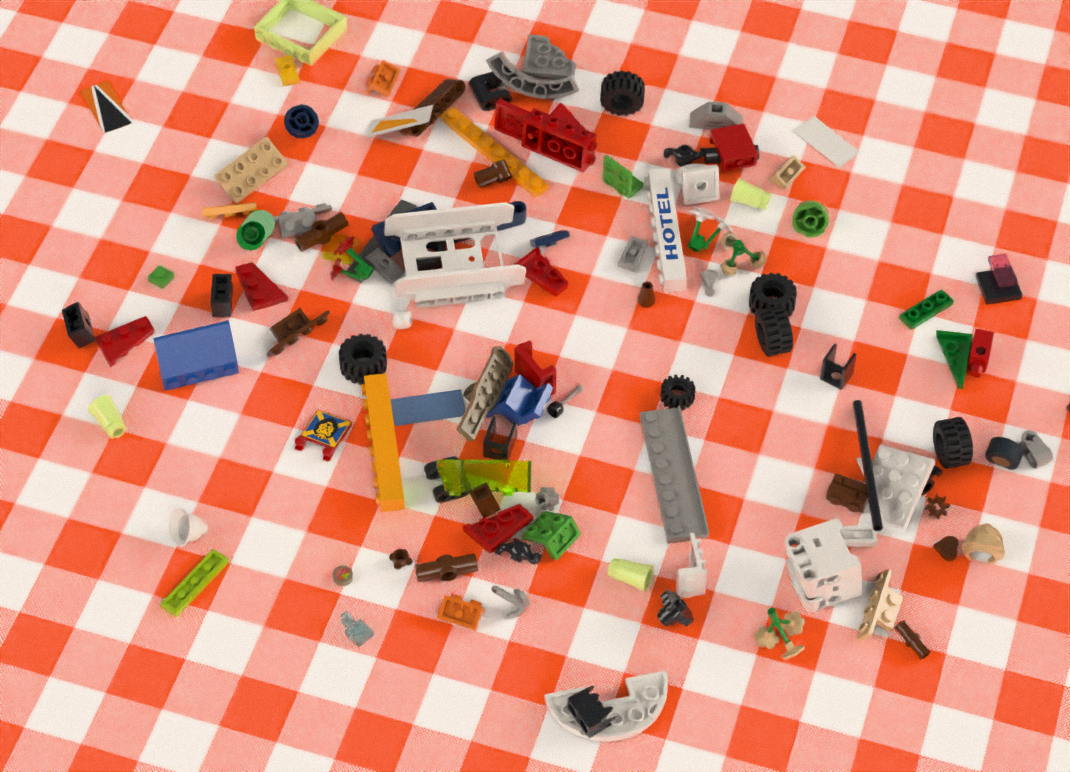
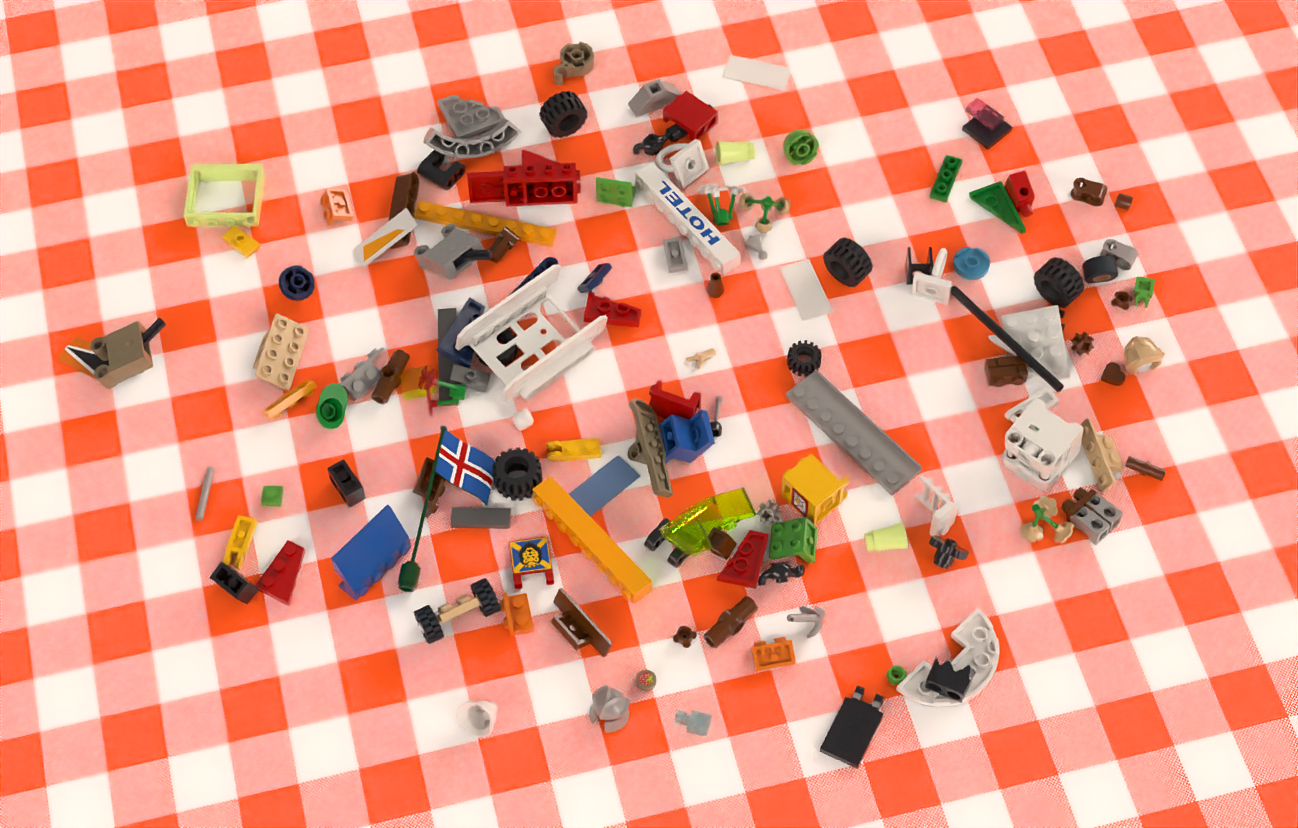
camera: 30 degrees left, 5 degrees up
(107, 416) = (327, 654): yellowish green plant -> none
(109, 297) = (240, 540): none -> yellow hinge
(111, 248) = (205, 493): none -> light grey bar
(129, 108) = (127, 352): none -> dark tan piece
(194, 583) = (521, 762): lime tile -> none
(202, 436) = (430, 621): none -> black plate
(258, 288) = (369, 458): red wing -> none
(279, 467) = (518, 614): none -> orange bracket
(296, 576) = (609, 705): none -> light grey helmet
(309, 379) = (481, 518): none -> dark grey tile
(317, 502) = (577, 626): none -> reddish brown bracket
(321, 330) = (462, 467): none -> flag
(427, 366) = (574, 449): none -> yellow hinge
(442, 159) = (452, 253): none -> light grey piece
(483, 708) = (853, 729): none -> black tile
(504, 449) = (685, 493): black piece -> none
(552, 682) = (896, 670): none -> bright green plate
(590, 347) = (701, 357): none -> tan bar
(597, 499) = (813, 489): none -> yellow container
(670, 57) = (574, 61): none -> dark tan piece
(726, 339) = (806, 289): none -> white sticker
(774, 286) = (819, 221): black tyre -> none
(787, 172) = (746, 116): tan slope -> none
(831, 652) = (1092, 514): none -> light grey hips
(834, 388) = (932, 286): none -> white tile
(892, 390) = (971, 263): none -> dark azure tile
(1007, 486) = (1123, 296): none -> reddish brown plate
(1033, 490) = (1143, 290): none -> bright green plate
(1051, 385) = (1090, 192): none -> reddish brown piece

